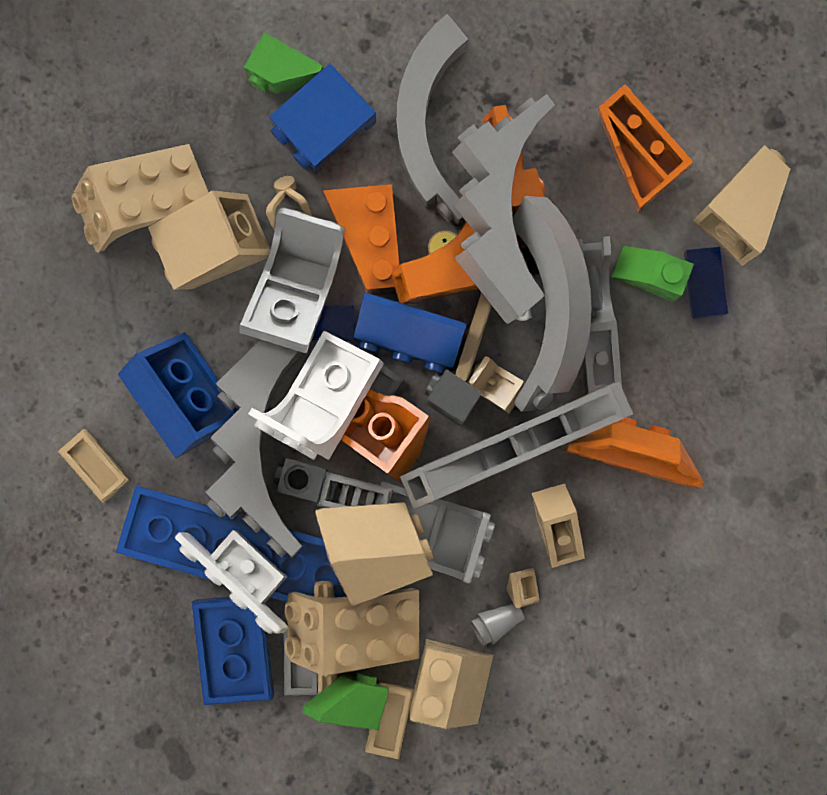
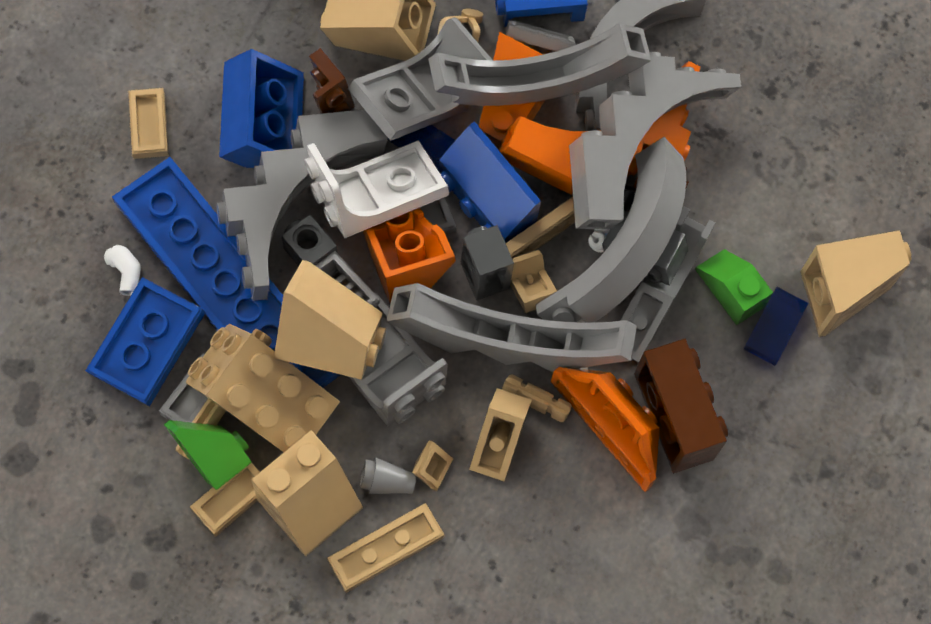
camera: 30 degrees right, 15 degrees down
(169, 597) = (127, 264): none -> white arm
(232, 341) = (332, 87): none -> reddish brown bracket
(243, 571) = (206, 277): white bracket -> none
(355, 167) = (538, 36): none -> light grey tile
(389, 212) = (541, 76): none -> light grey arch
(533, 674) = (385, 547): none -> tan tile
(564, 474) = (541, 399): none -> tan axle
(642, 147) = (795, 178): orange wedge -> none
(685, 409) = (681, 405): none -> reddish brown brick

